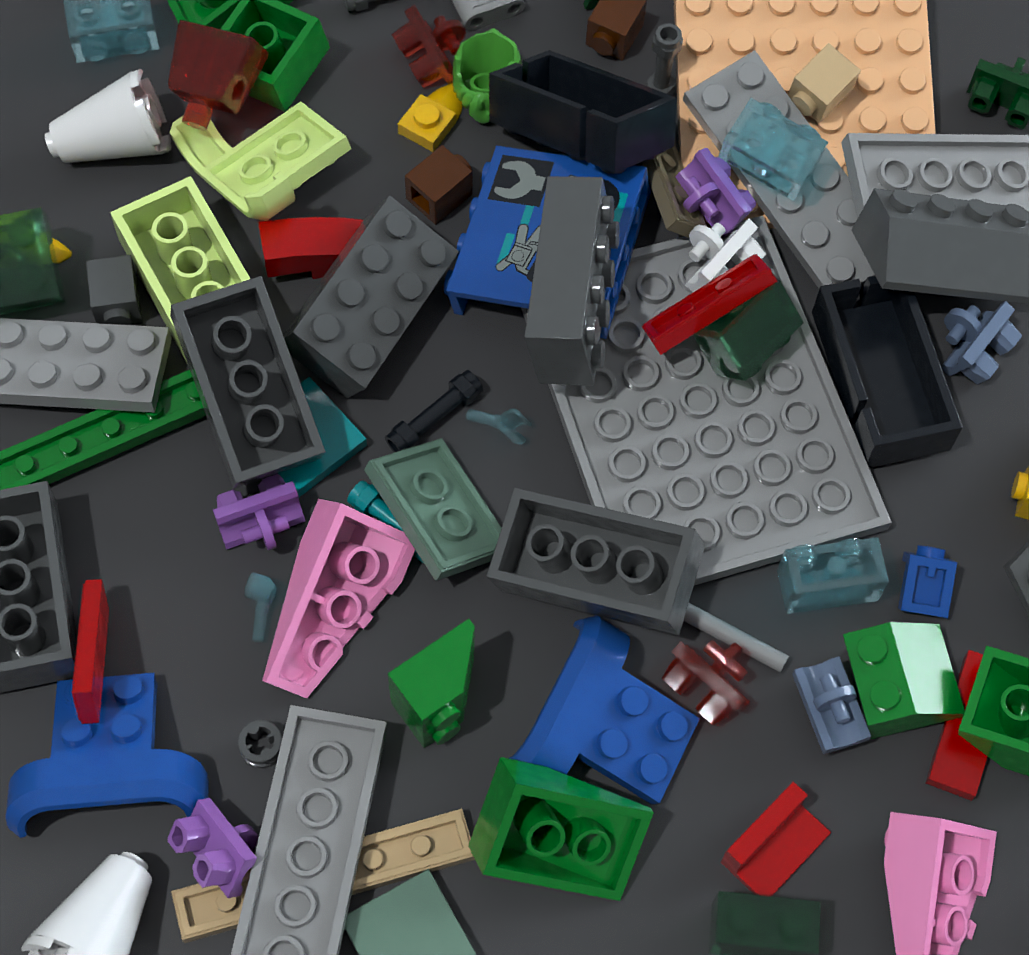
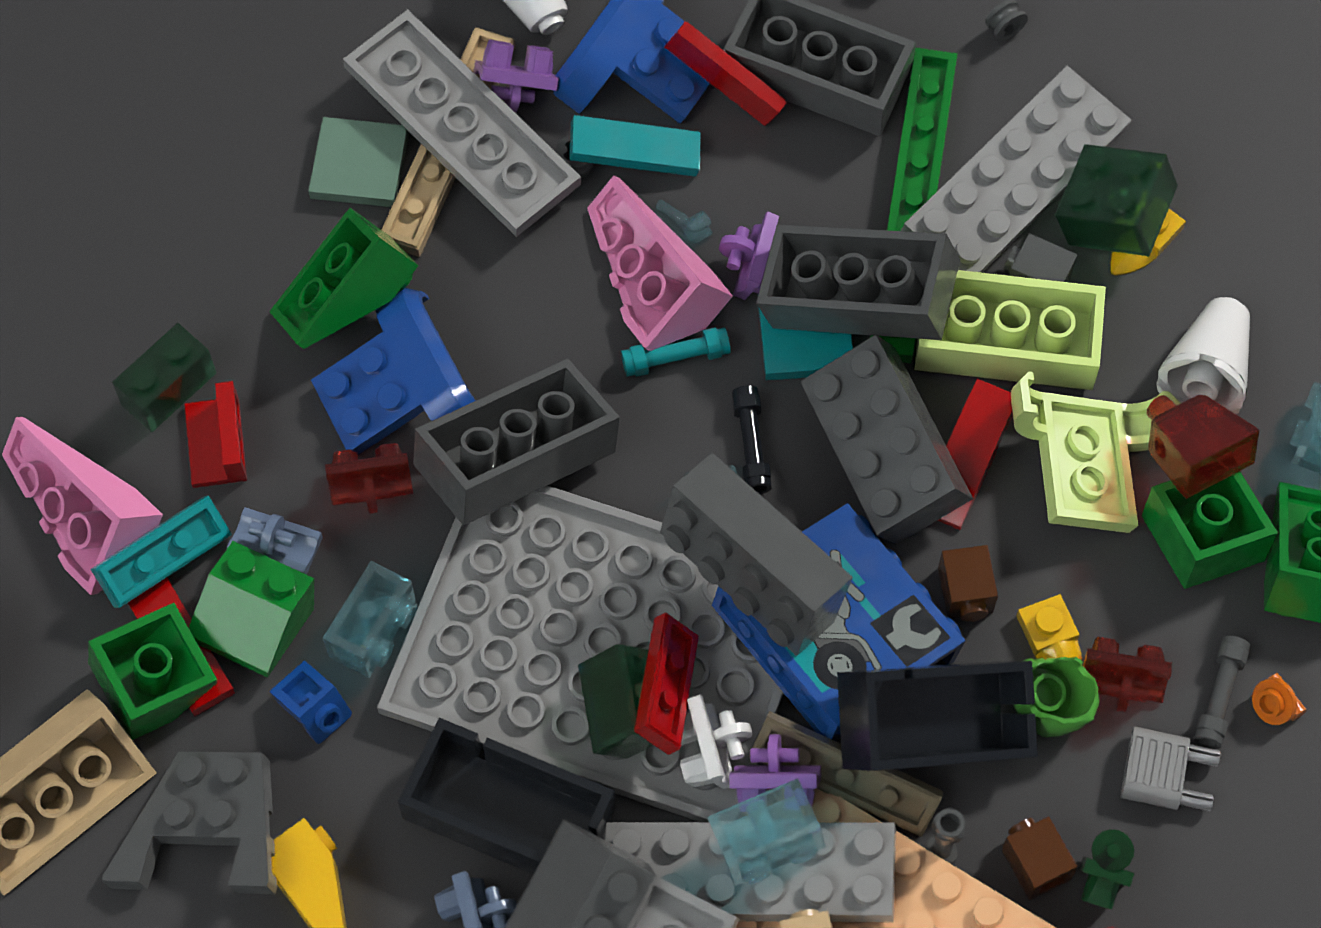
camera: 130 degrees right, 0 degrees up
(218, 691) = (635, 146): none -> teal tile
(434, 686) = (509, 271): green slope -> none
(436, 507) = (664, 379): sand green tile -> none
(729, 634) = (392, 527): light grey bar -> none
(917, 792) = (161, 552): none -> teal tile

